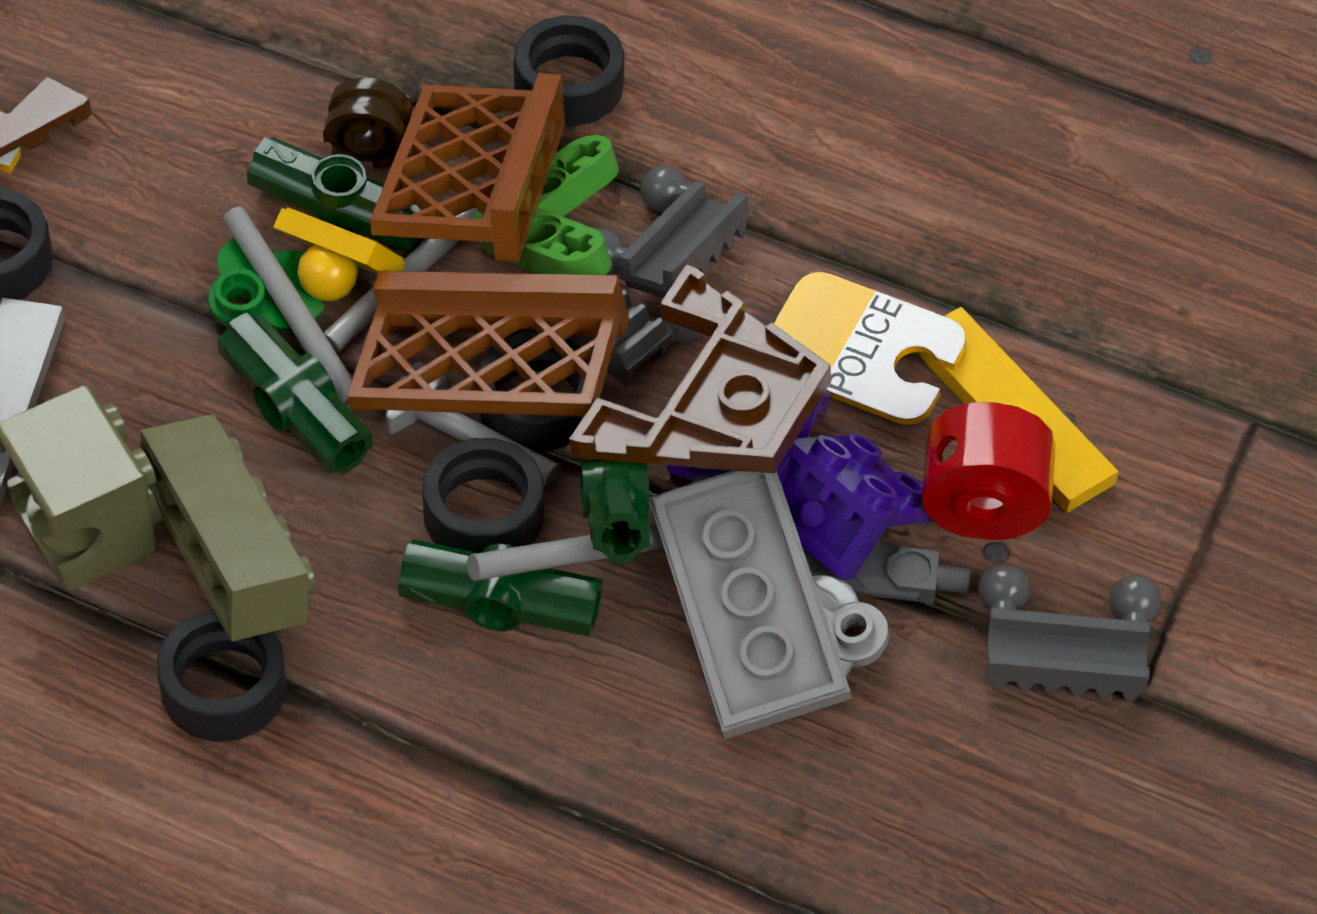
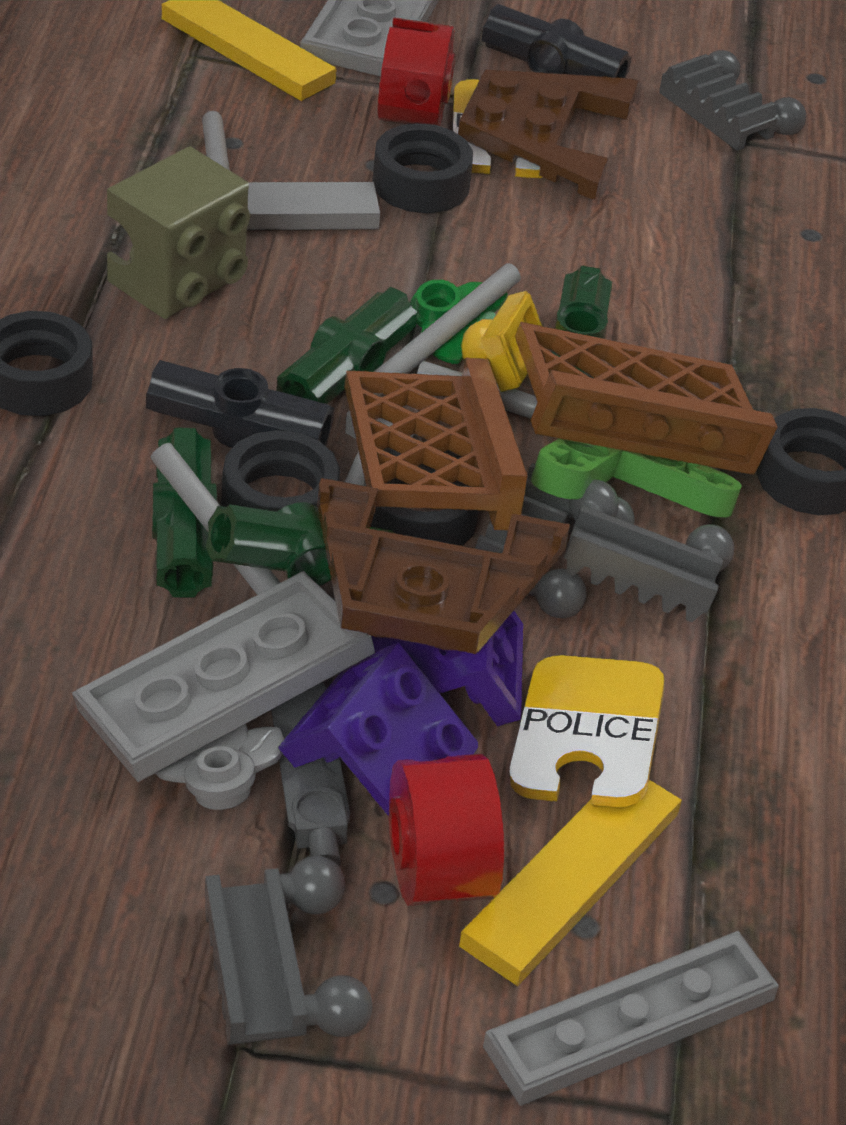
camera: 70 degrees right, 10 degrees down
(227, 528) = (166, 315): olive brick -> none
(367, 120) = (665, 324): dark brown wheel -> none
(384, 482) = (234, 403): none -> black piece
(1166, 416) = (628, 1017): none -> light grey tile

